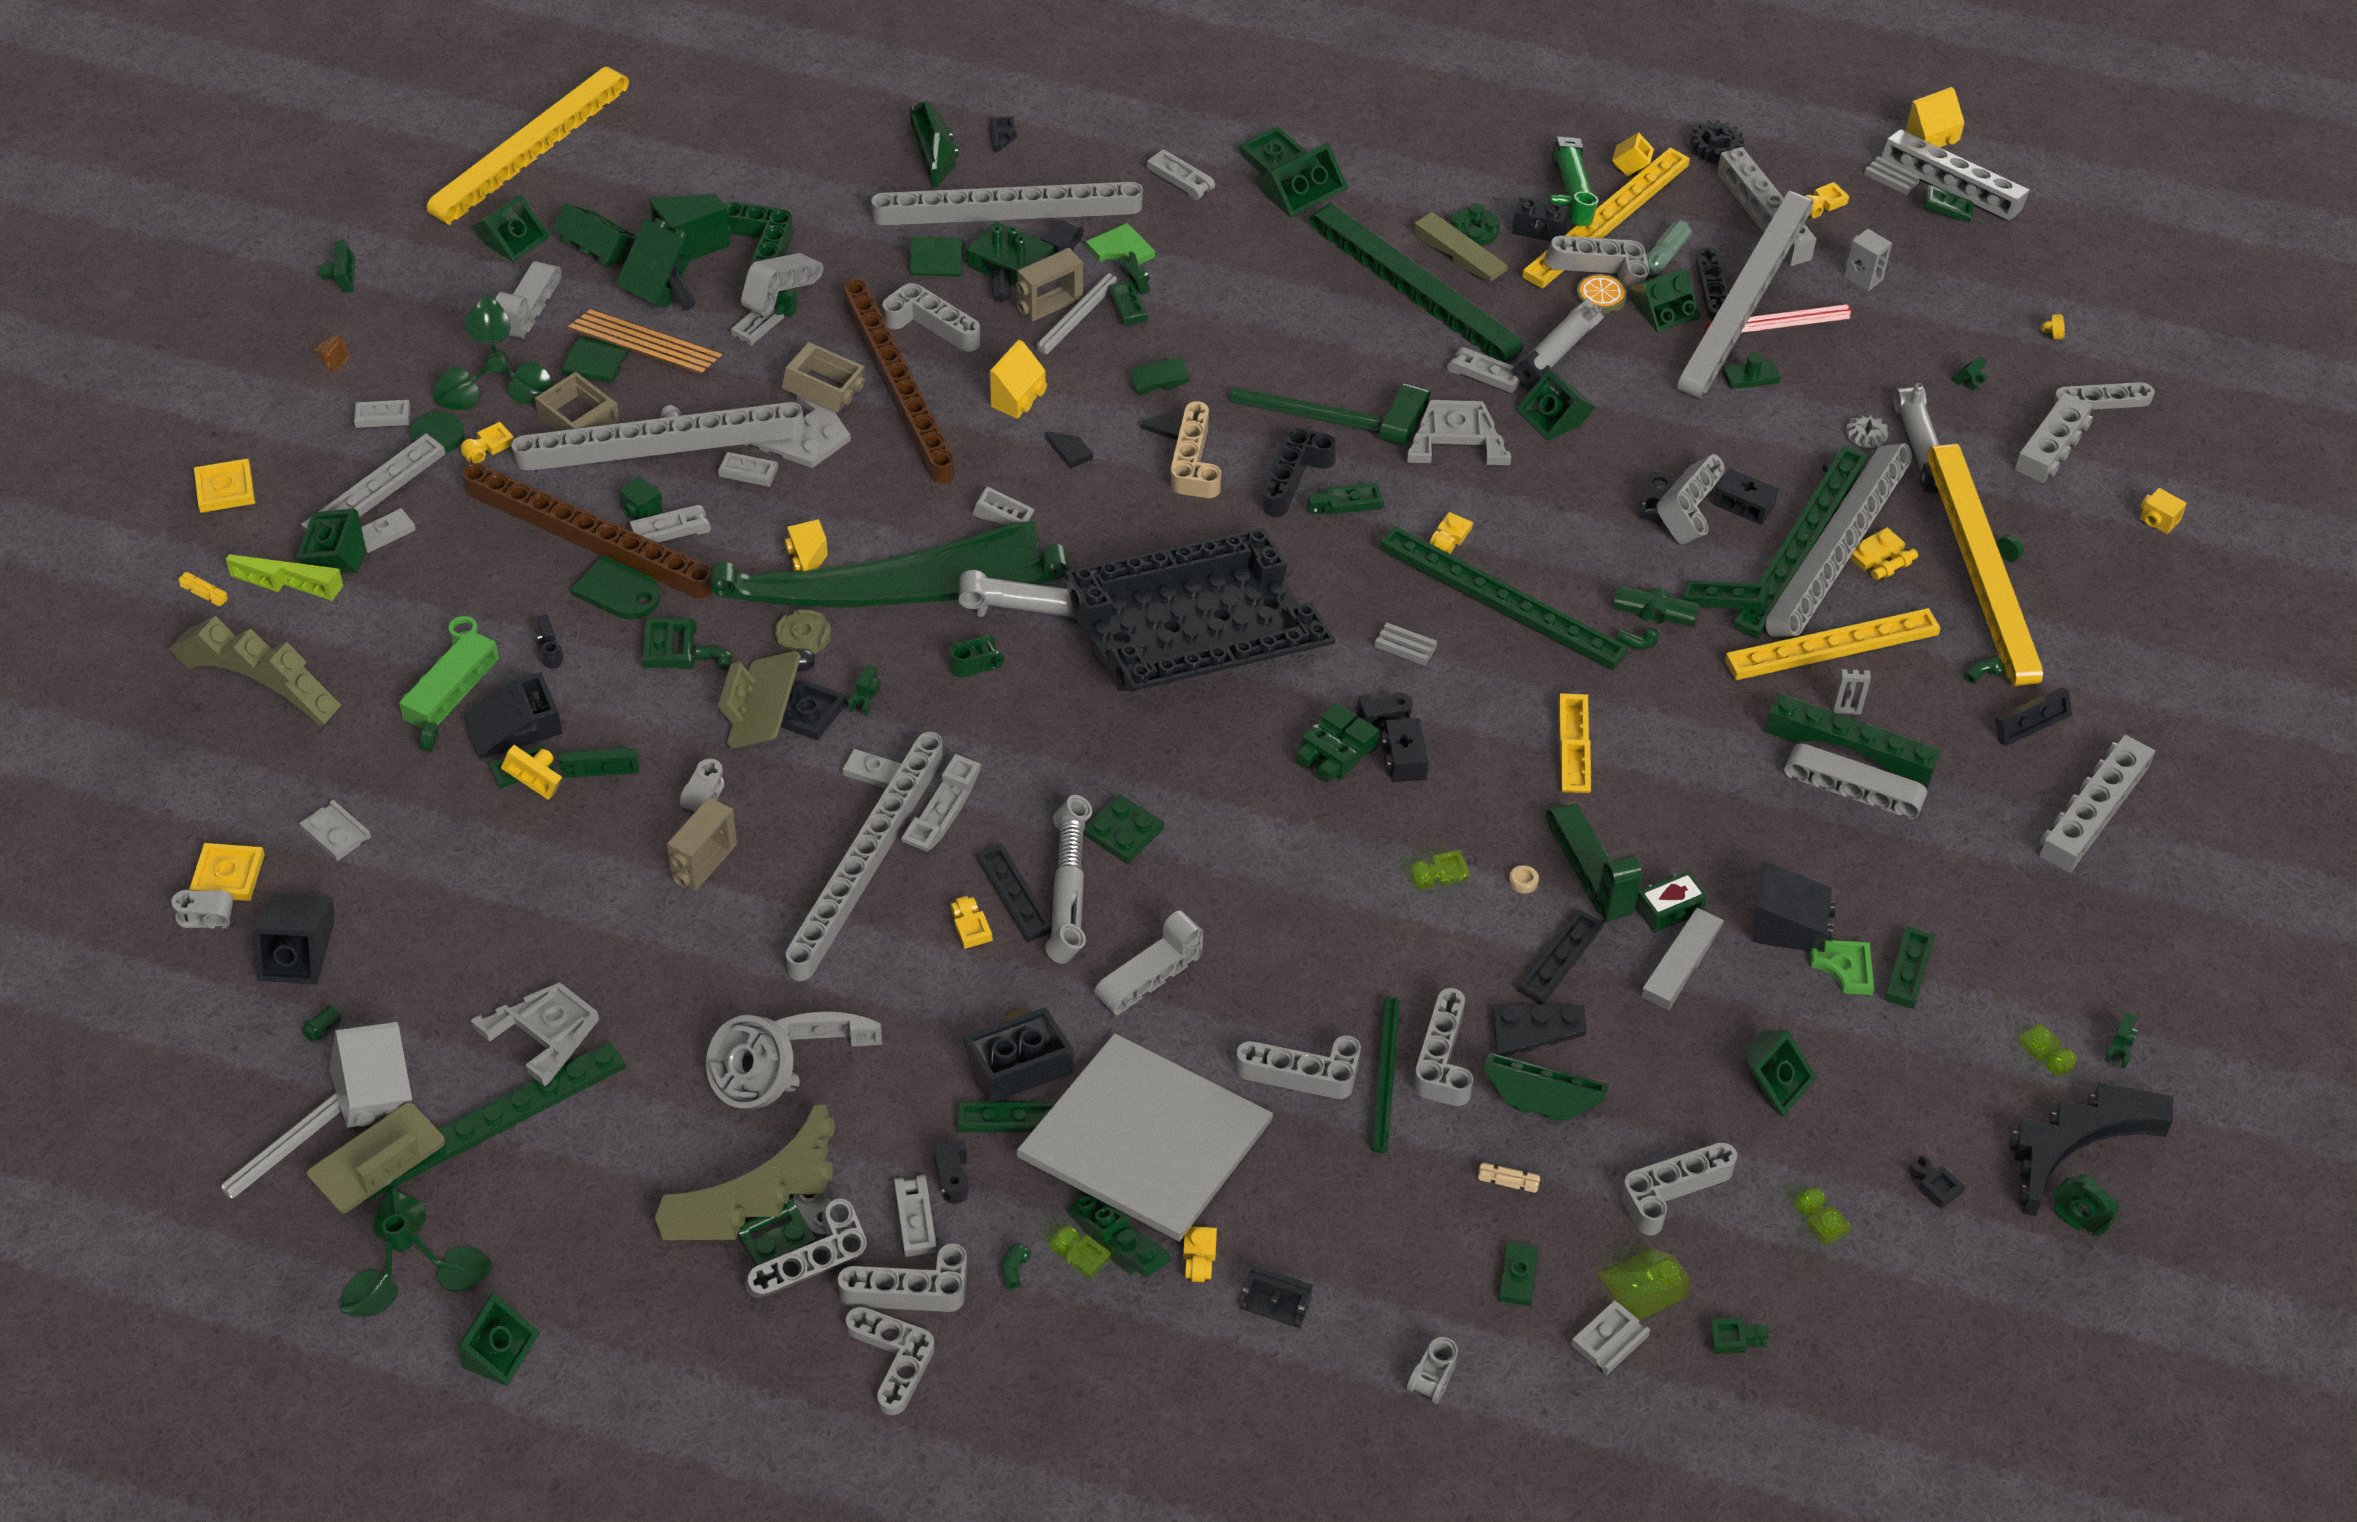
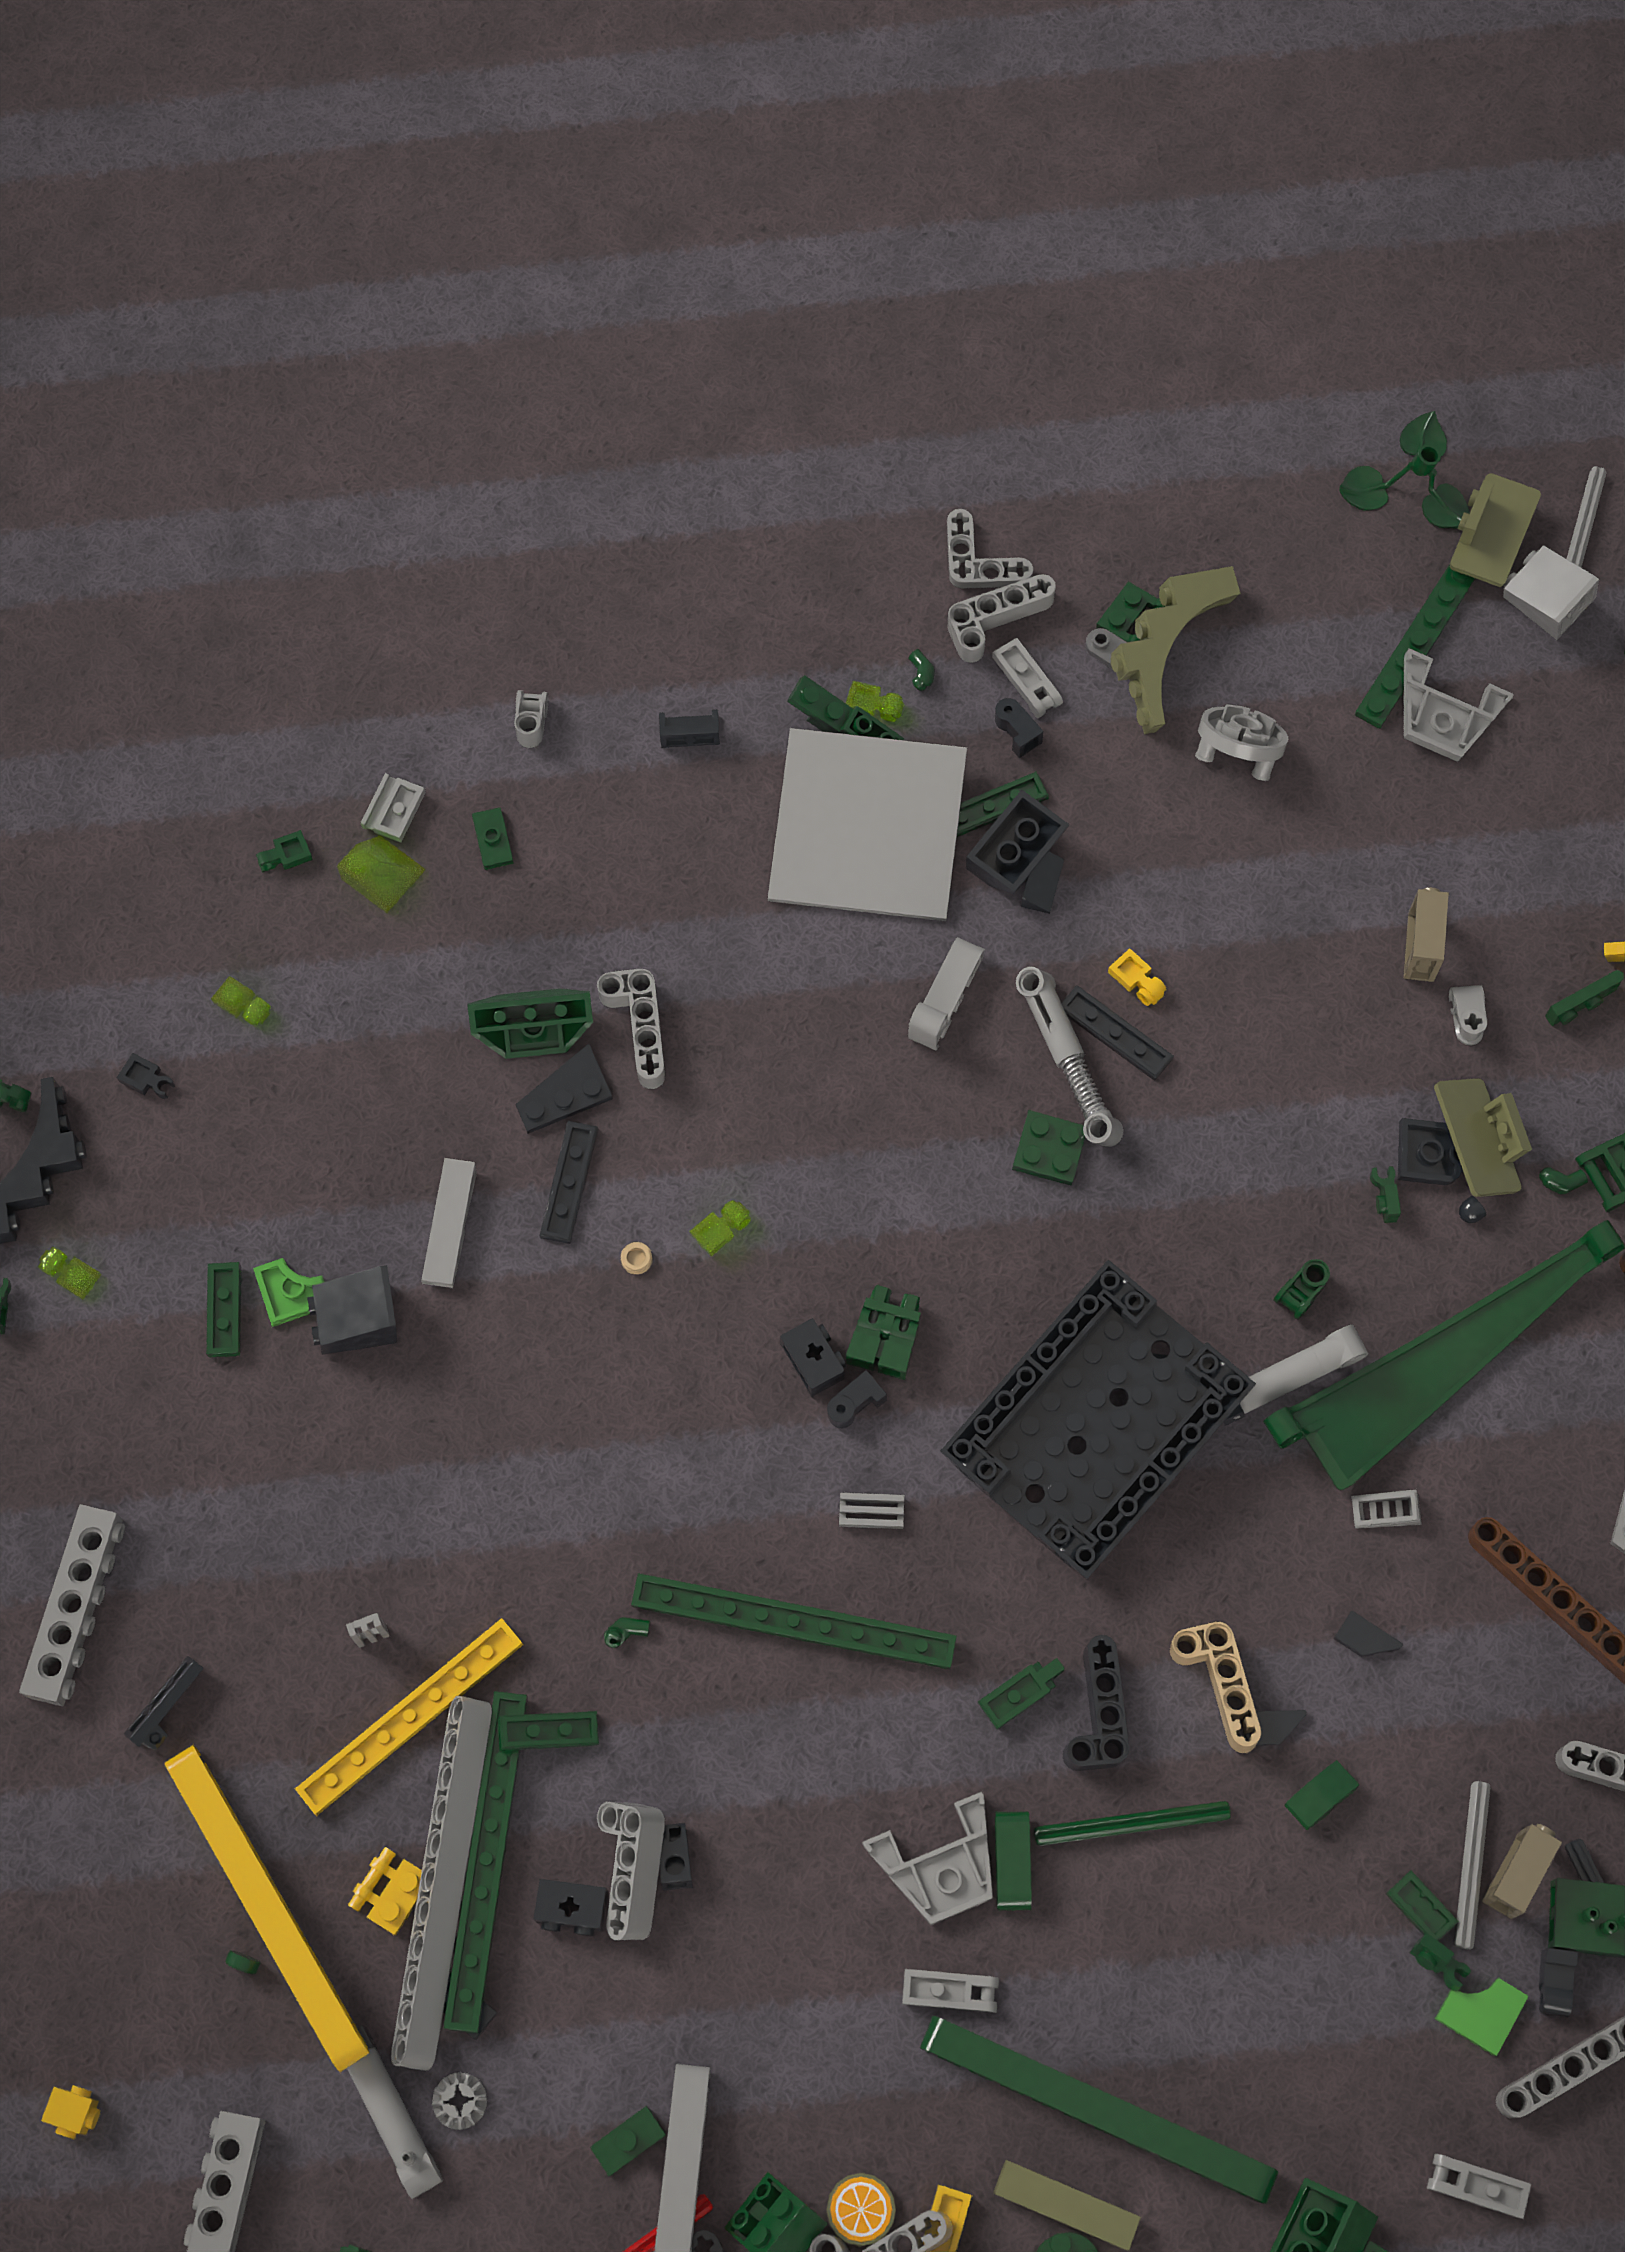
camera: 160 degrees right, 20 degrees up
(496, 1341) = (1293, 435): dark green slope -> none
(803, 1256) = (1075, 611): light grey beam -> none
(807, 545) = (1555, 1353): yellow slope -> none
(813, 639) = (1488, 1256): olive tile -> none
(832, 1024) = (1174, 822): light grey slope -> none
(864, 857) = (1272, 1020): light grey beam -> none
(870, 768) = (1324, 1112): light grey plate -> none
(945, 804) = (1234, 1089): light grey slope -> none
(1016, 381) = (1471, 1693): yellow slope -> none
(1199, 1252) = (773, 749): yellow plate -> none
(1260, 1062) = (766, 953): light grey beam -> none
(1385, 1075) = (684, 984): dark green axle -> none
(1451, 532) = (886, 1706): yellow plate -> none
(1509, 1177) = (534, 925): tan axle -> none
(1554, 406) = (841, 1955): dark green slope -> none
(1558, 342) = (862, 2127): light grey piece -> none
(1574, 743) = (645, 1453): yellow slope -> none
(1610, 883) = (535, 1251): dark green beam -> none
(1656, 605) = (620, 1683): dark green piece -> none
(1670, 901) = (481, 1284): dark green brick -> none
(1711, 1166) = (375, 976): light grey beam -> none
(1779, 1068) = (323, 1130): dark green slope -> none
(1856, 780) = (332, 1523): light grey beam -> none
(1901, 756) = (351, 1571): dark green arch -> none
(1990, 664) = (235, 1760): dark green arm -> none

